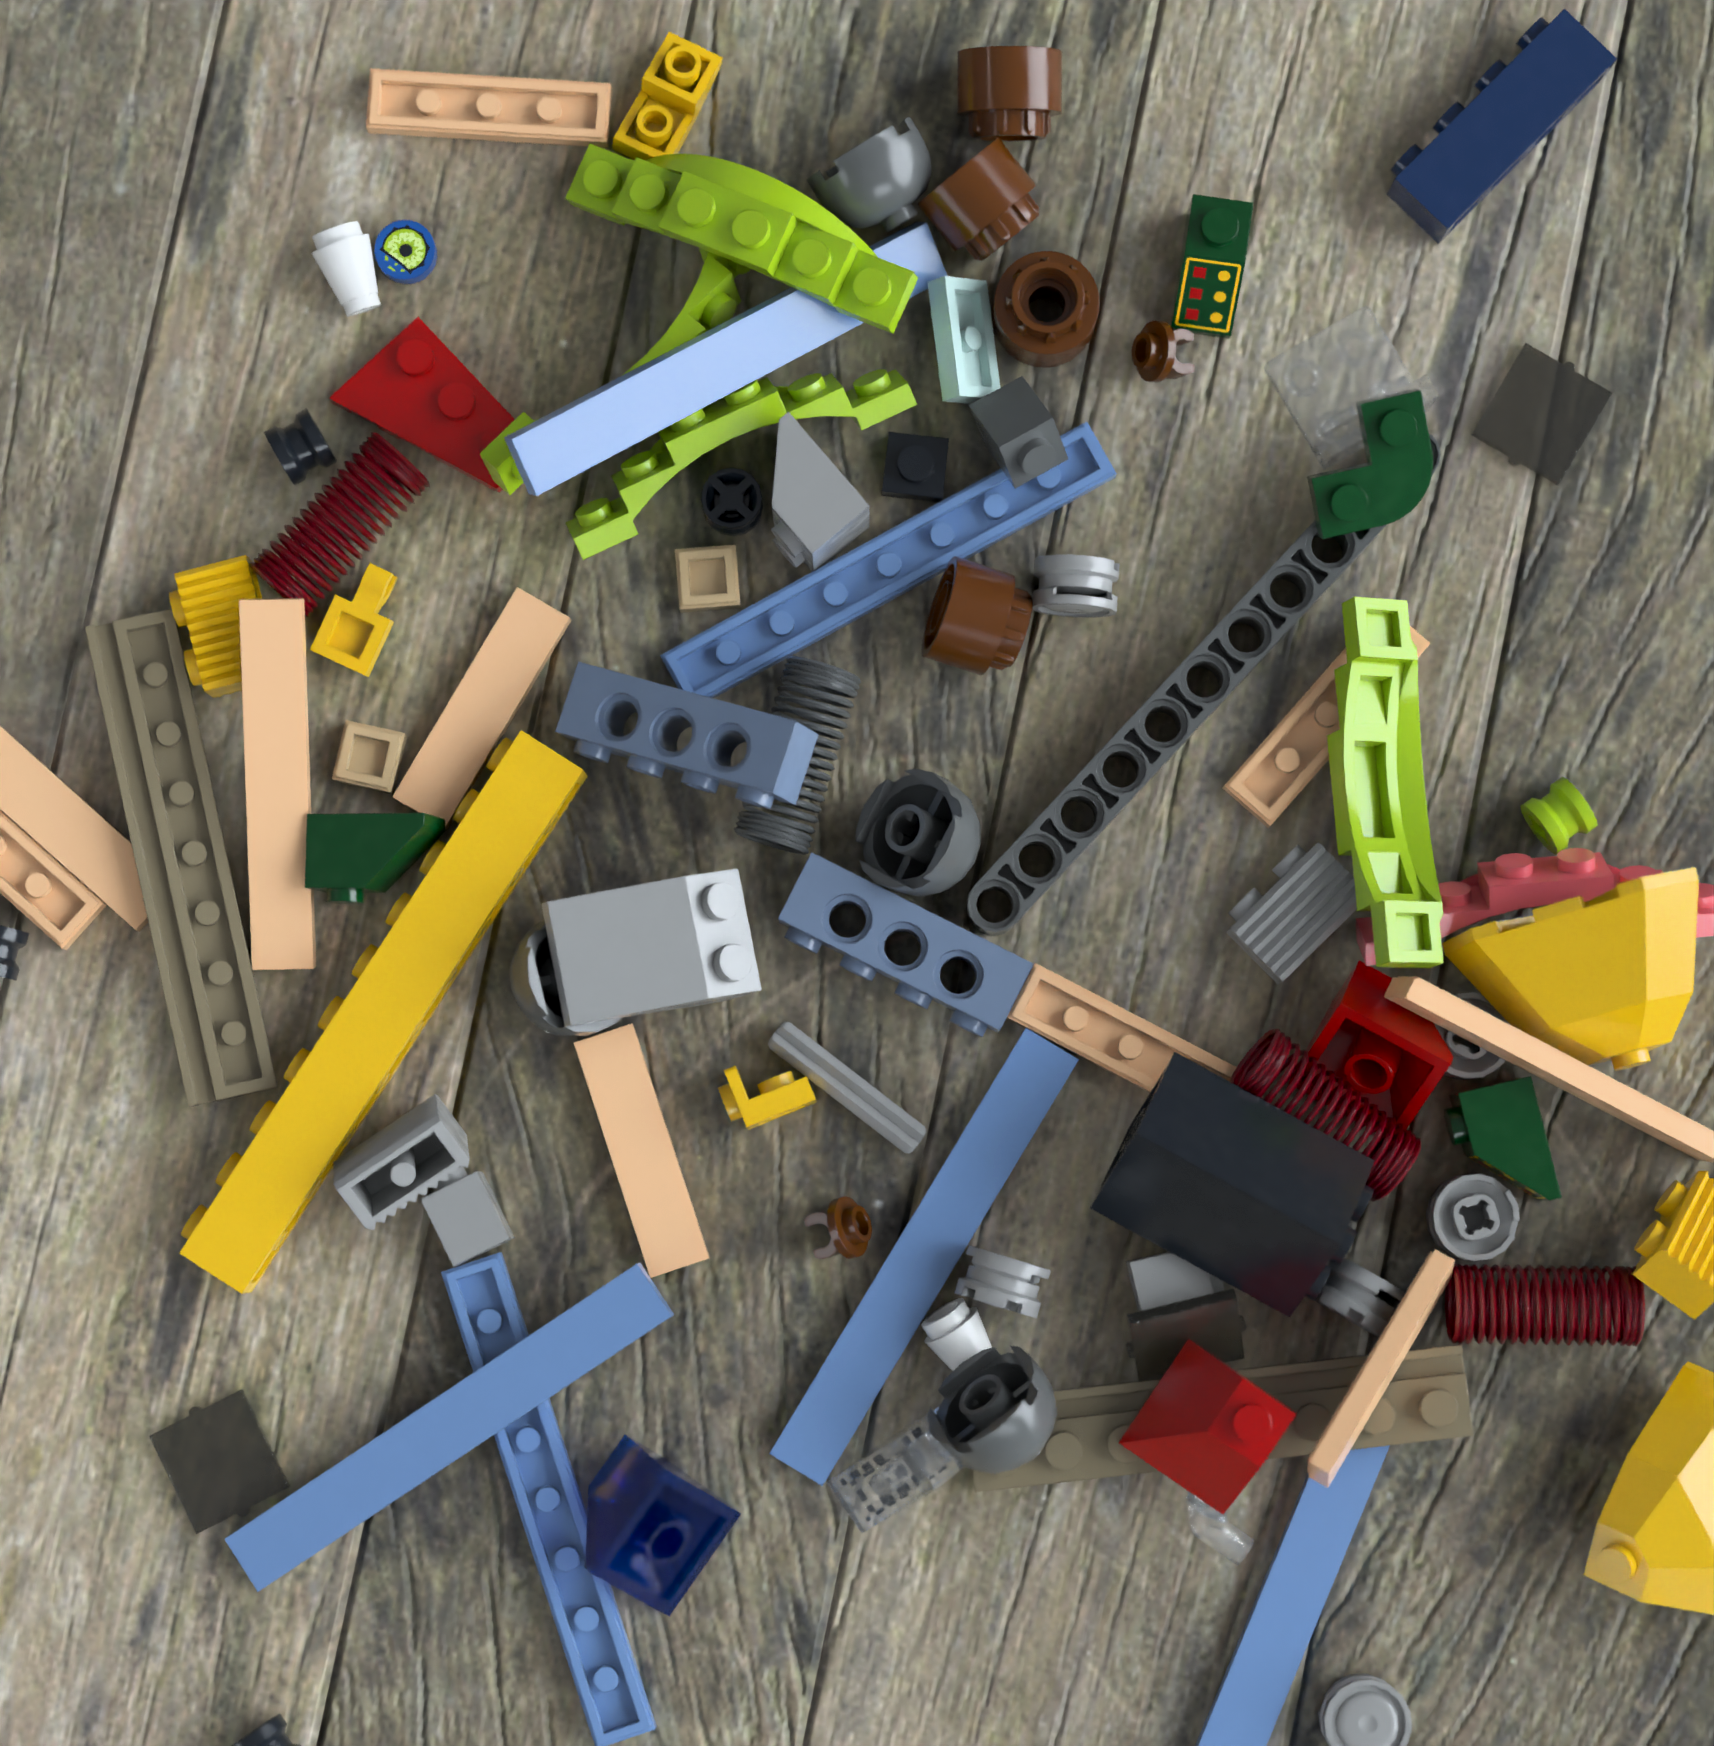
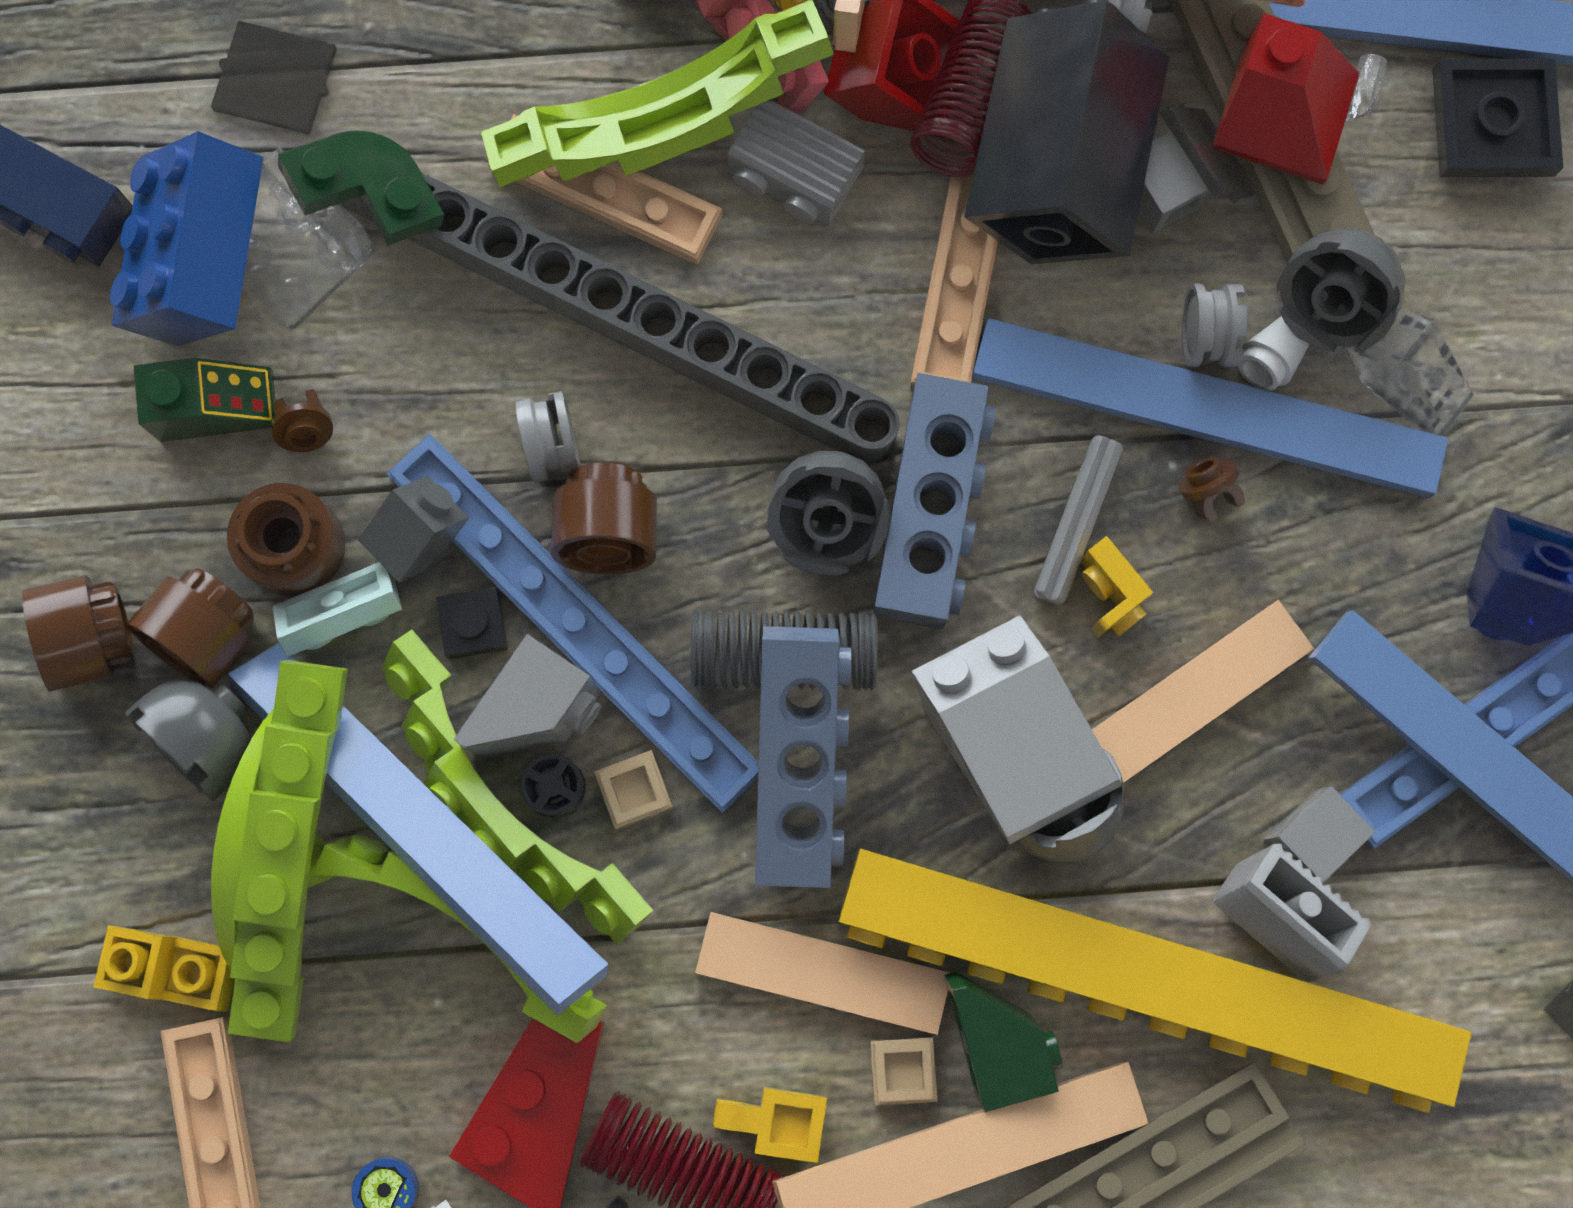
camera: 110 degrees left, 5 degrees down
(1145, 1658) = (1497, 118): none -> black plate
(1369, 283) = (186, 240): none -> blue brick

